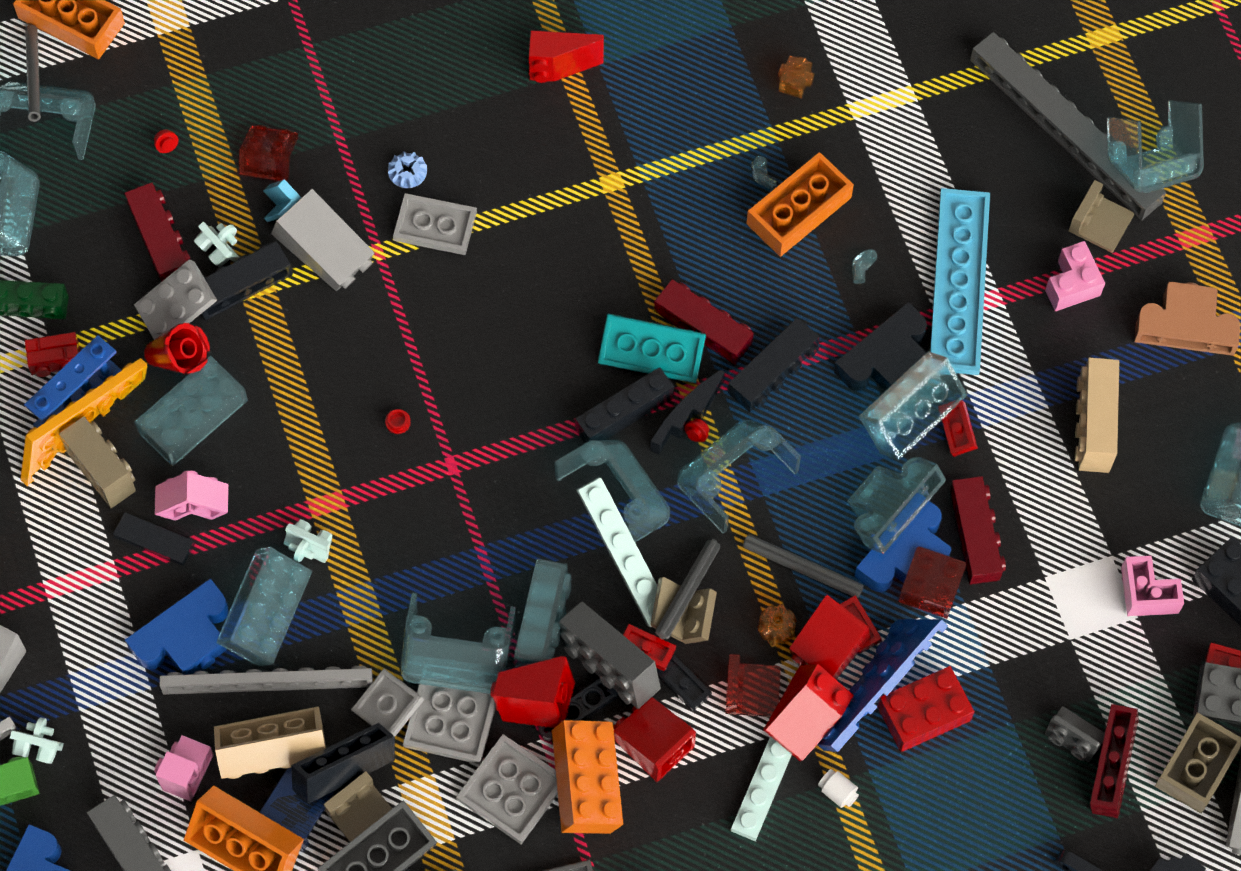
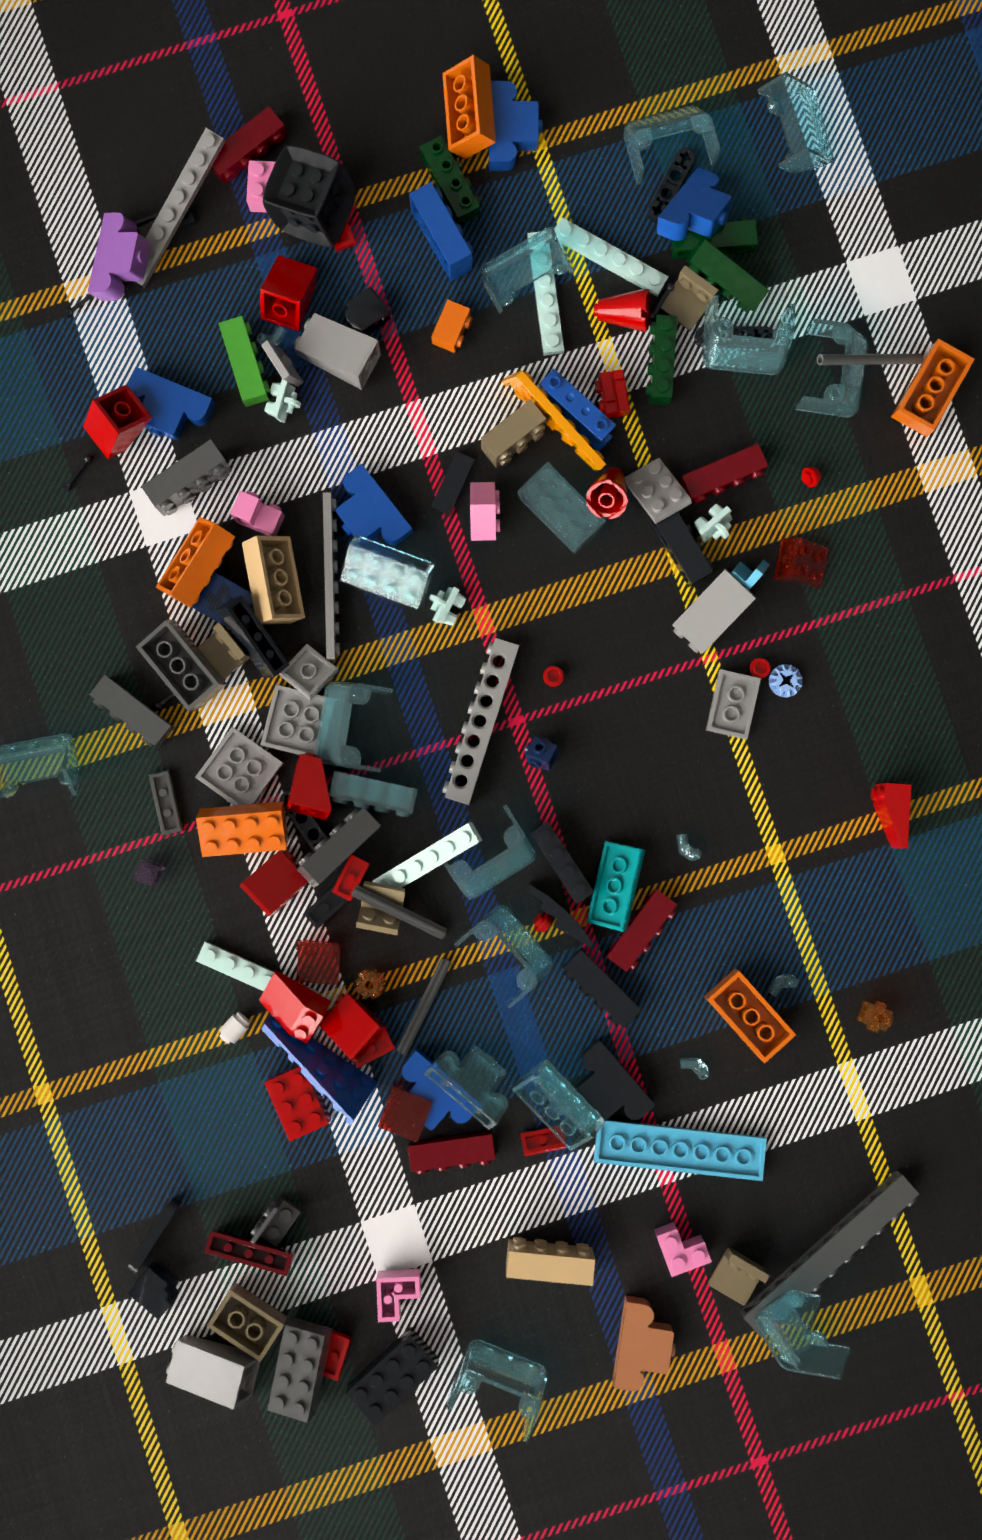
camera: 90 degrees right, 20 degrees up
(370, 469) = (497, 649): none -> light grey brick
(392, 196) = (759, 668): none -> red plate
(492, 430) = (541, 753): none -> dark blue brick
(607, 275) = (686, 850): none -> clear light blue arm

